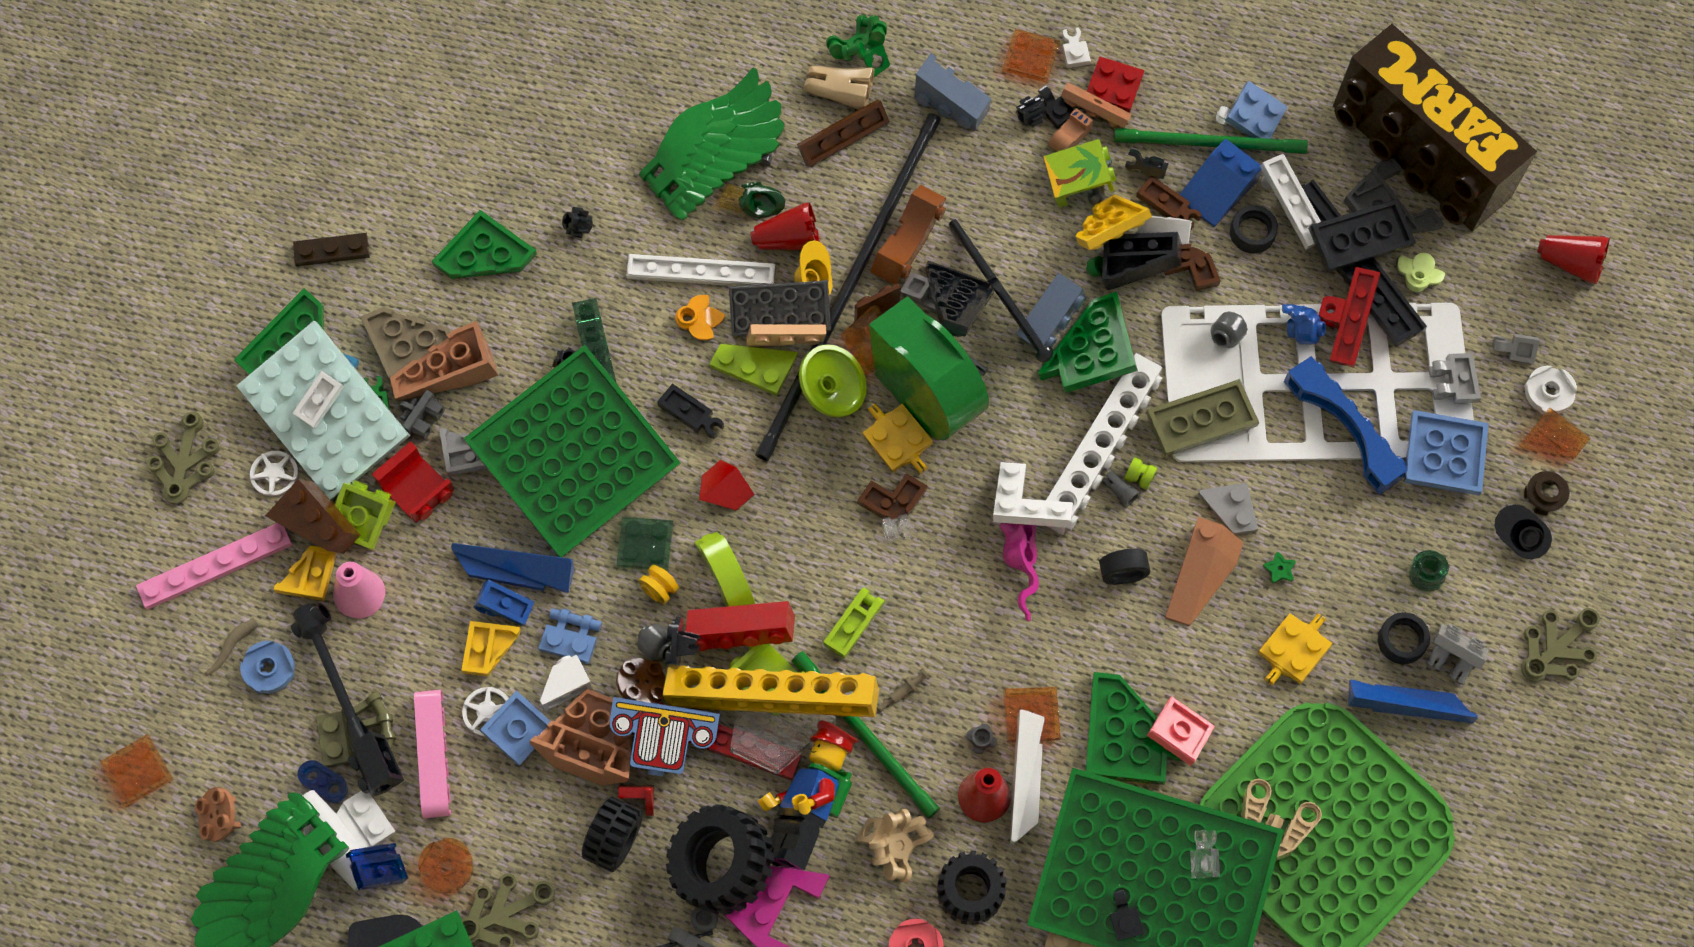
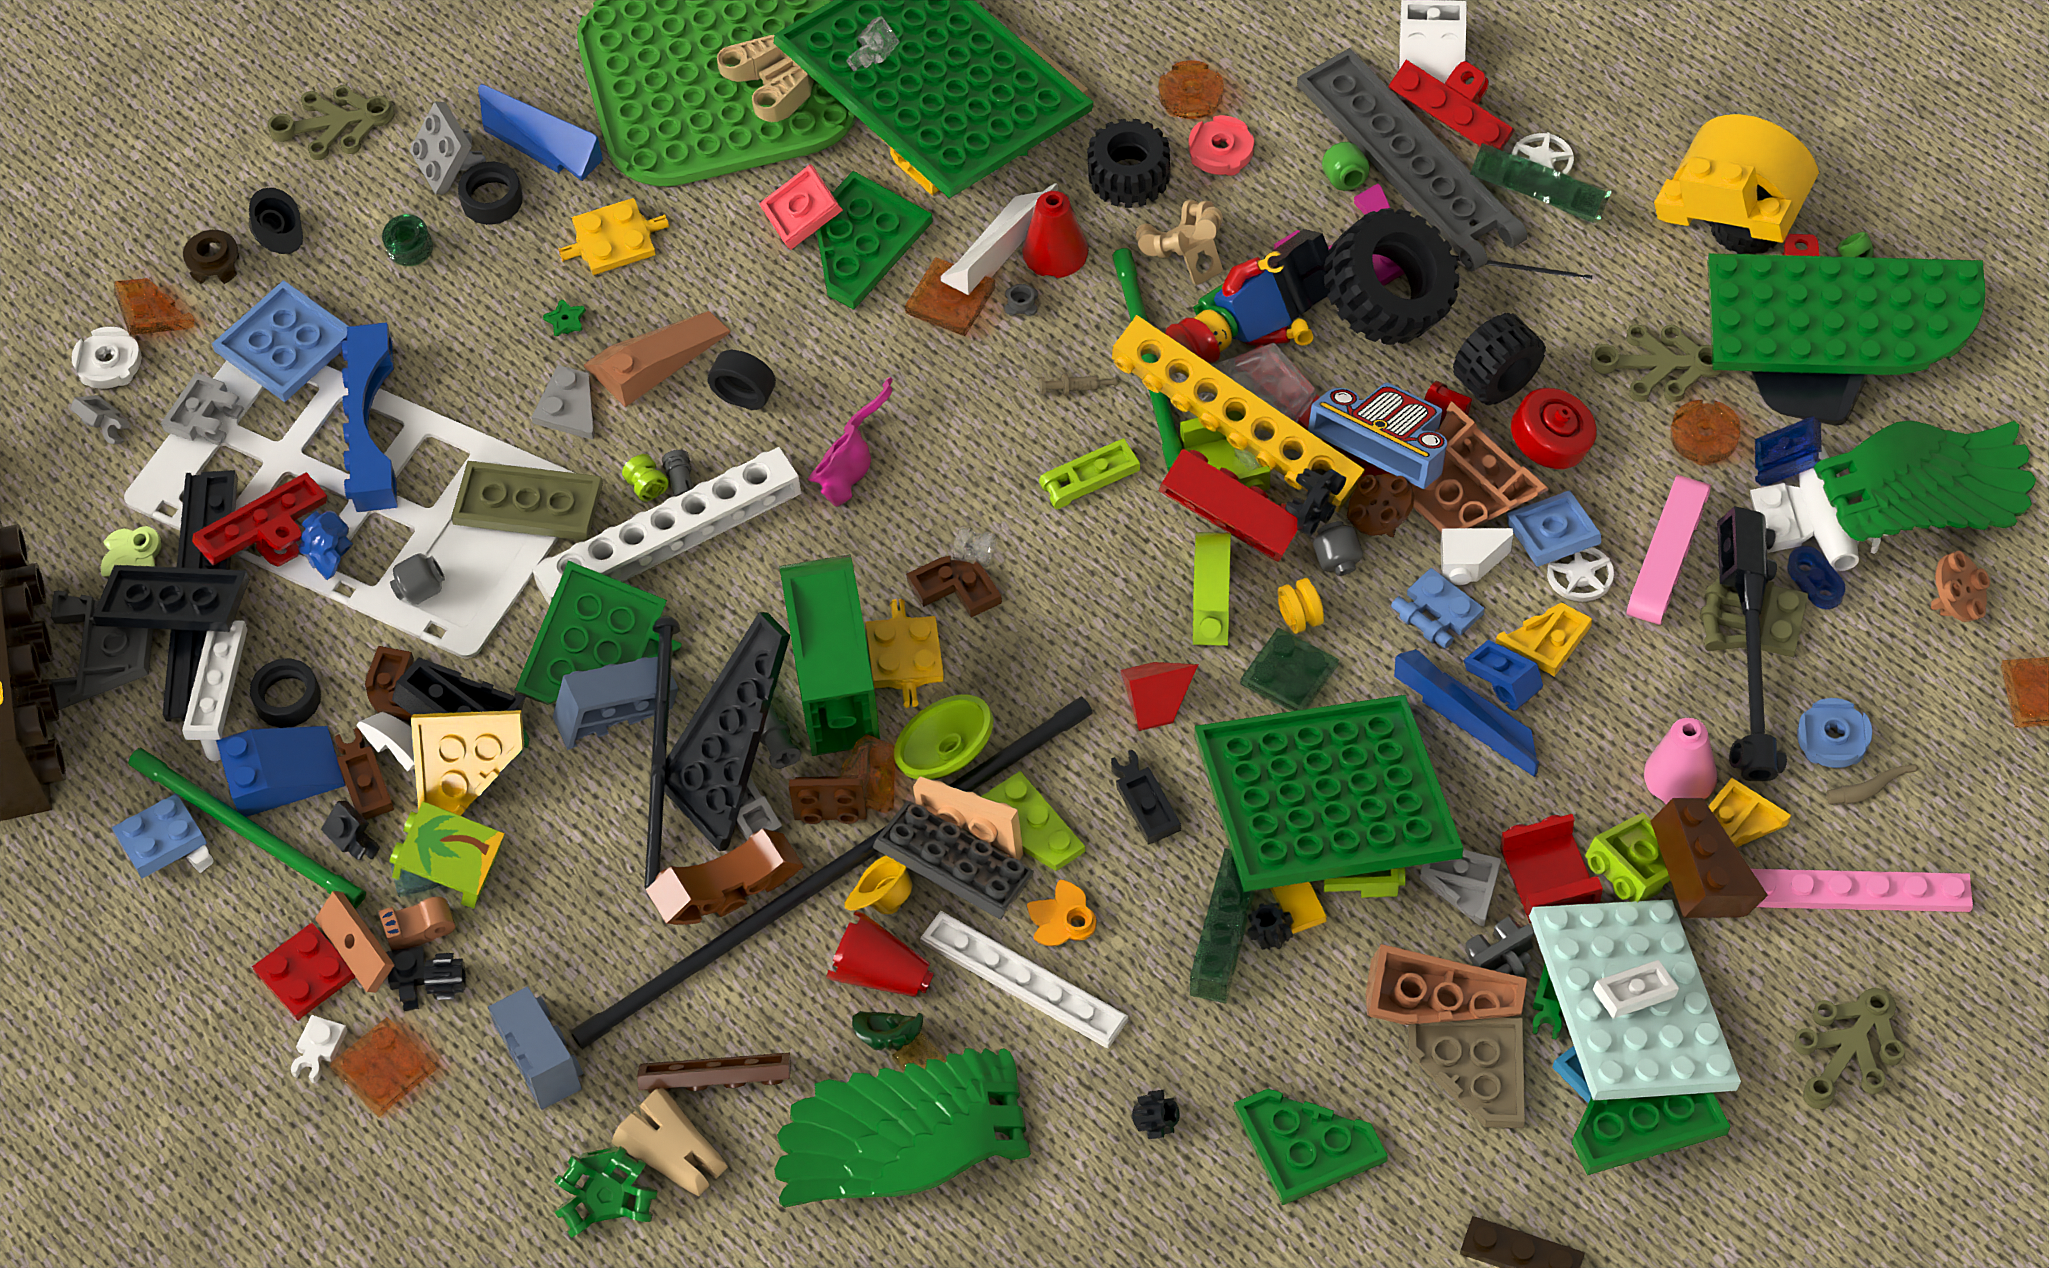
camera: 145 degrees left, 10 degrees down
(273, 473) = (1733, 974): white wheel -> none
(550, 804) = (1553, 428): none -> red wheel
(1013, 509) = (828, 494): white plate -> none
(1126, 920) = (990, 48): black plate -> none

